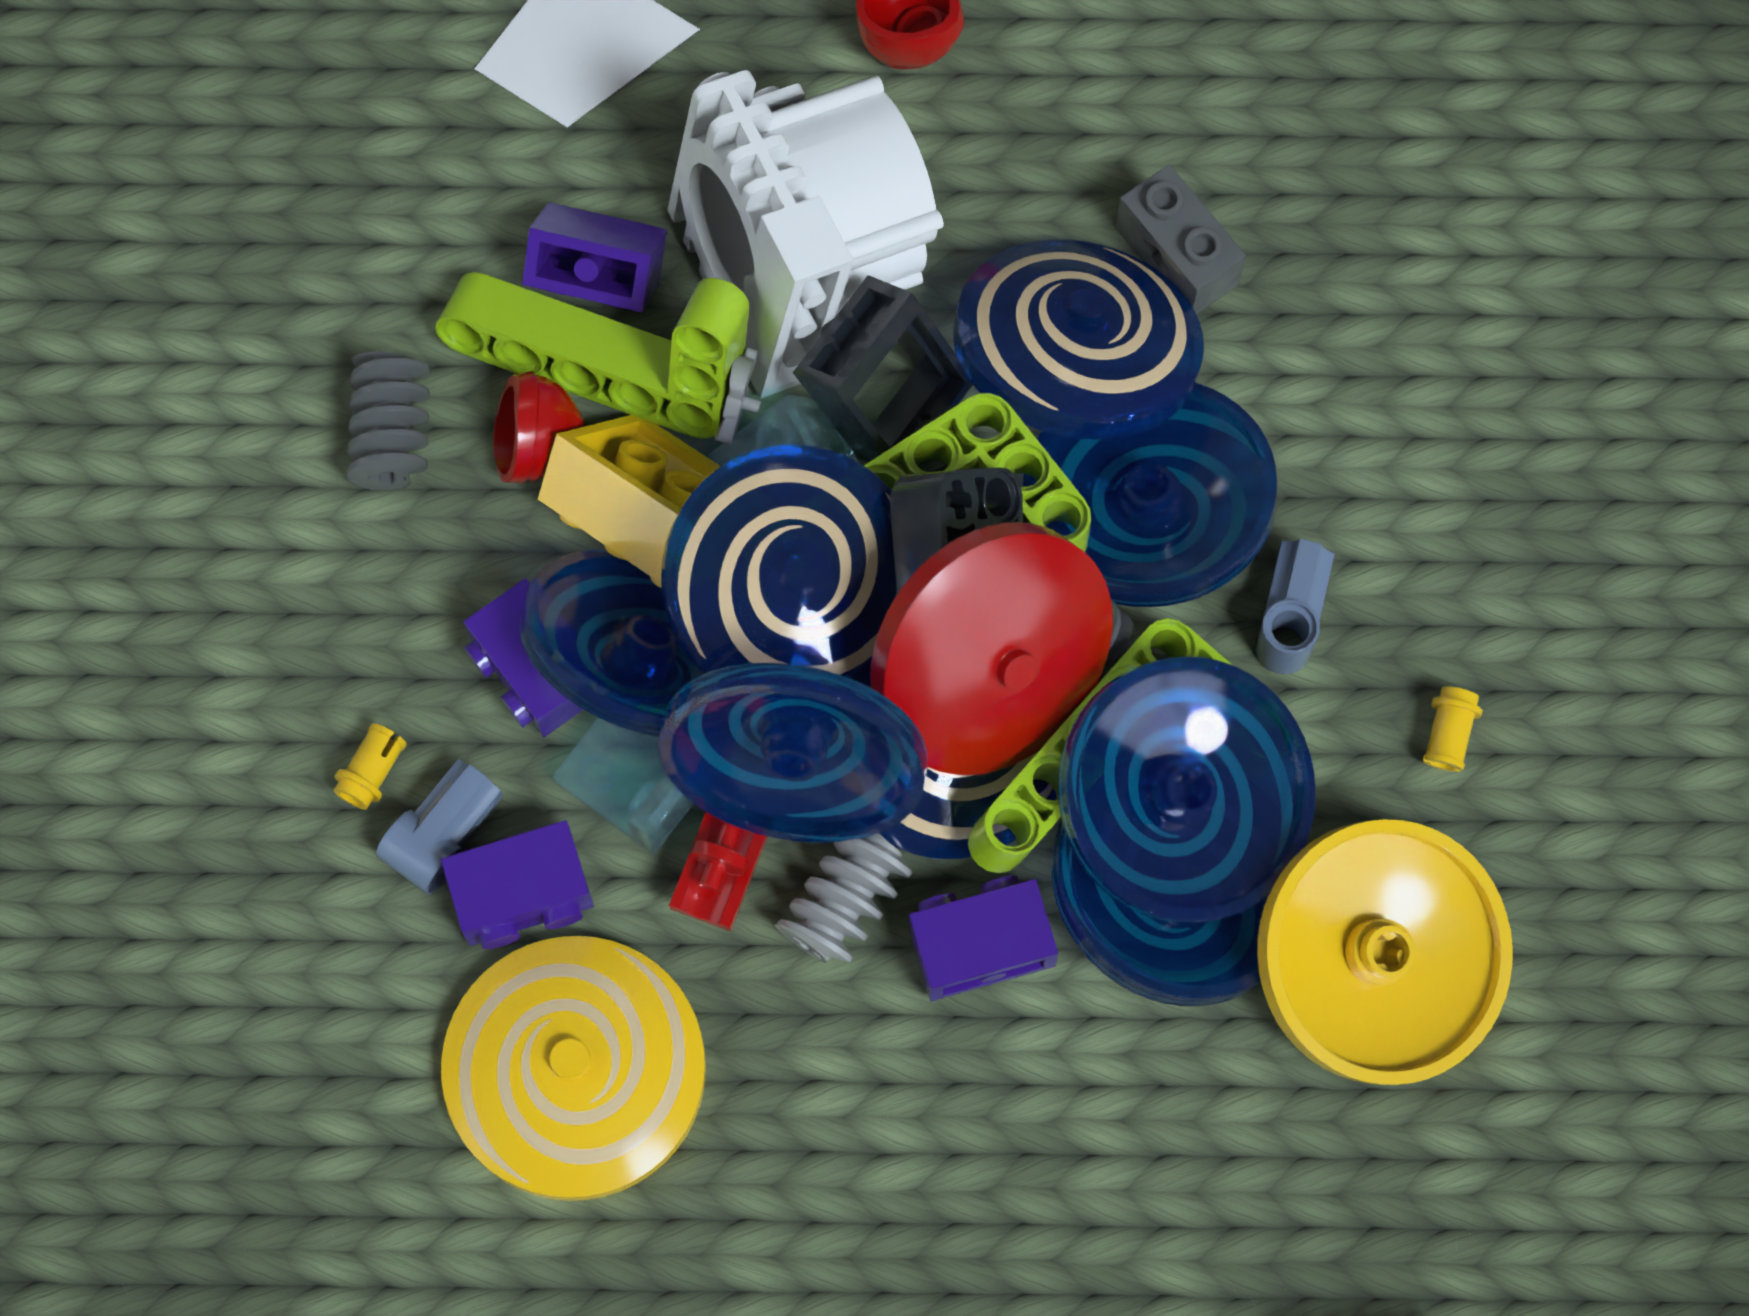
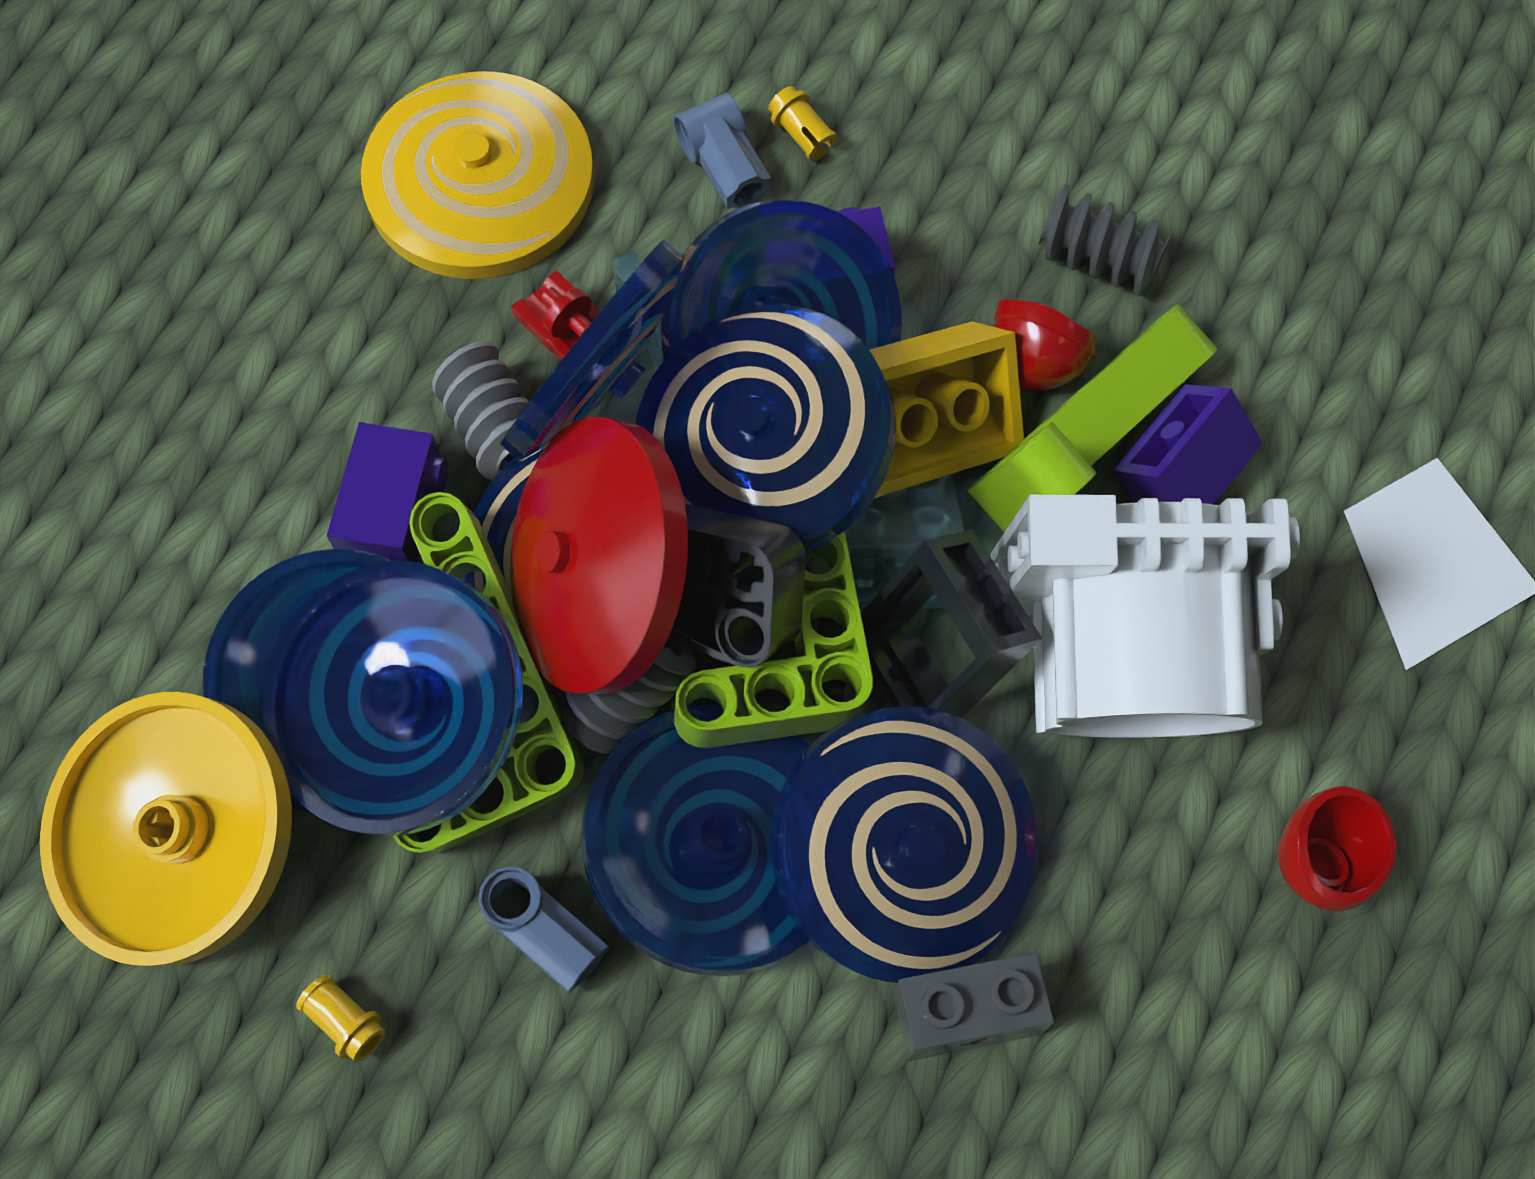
camera: 115 degrees right, 5 degrees down
(518, 885) = (637, 176): dark purple brick -> none
(737, 396) = (986, 502): light grey piece -> none

